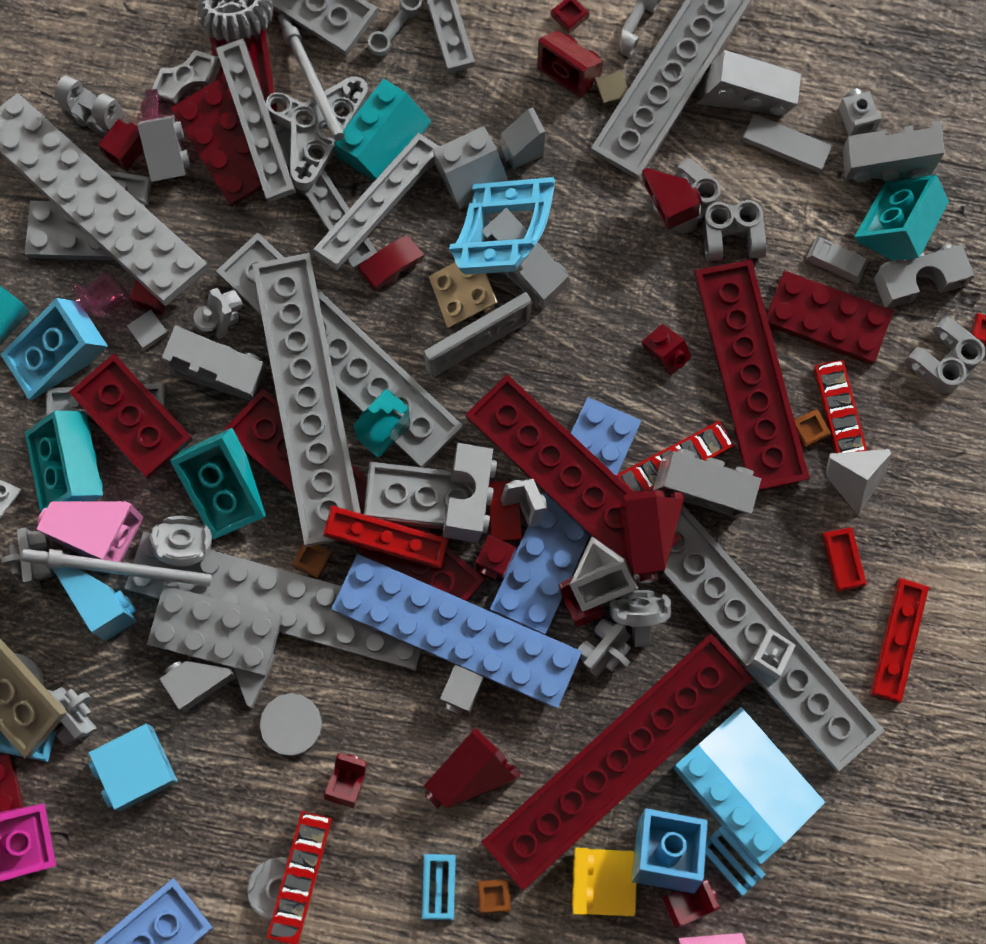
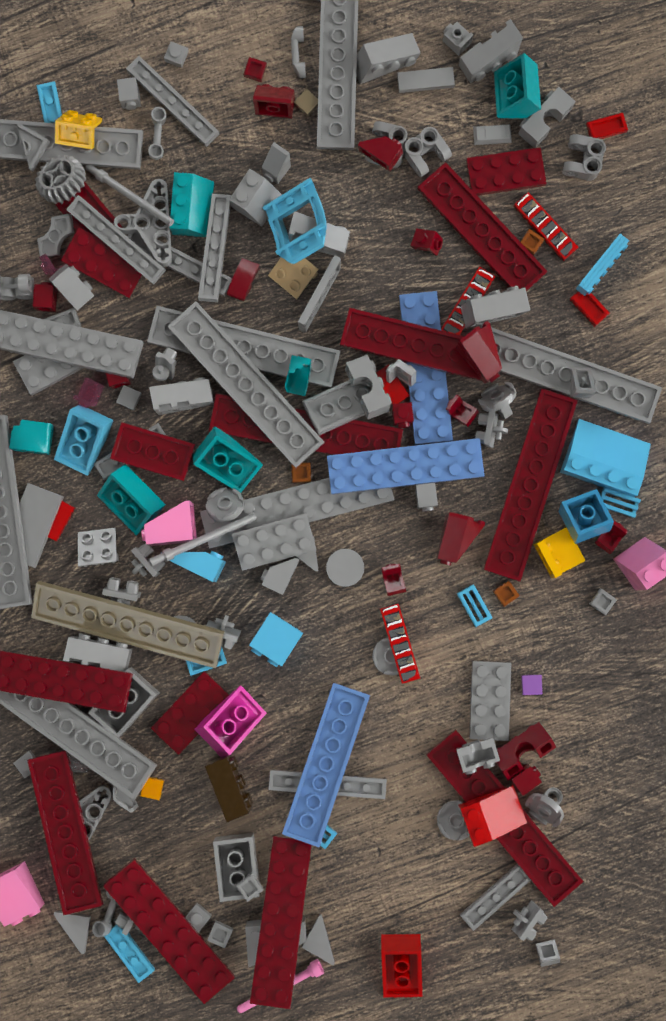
camera: 30 degrees left, 10 degrees up
(385, 537) = (337, 437): red tile -> none
(601, 576) = (467, 391): light grey slope -> none
(857, 474) = (572, 254): light grey slope -> none
(892, 512) = (602, 264): none -> medium azure piece
(899, 640) = (643, 333): red tile -> none

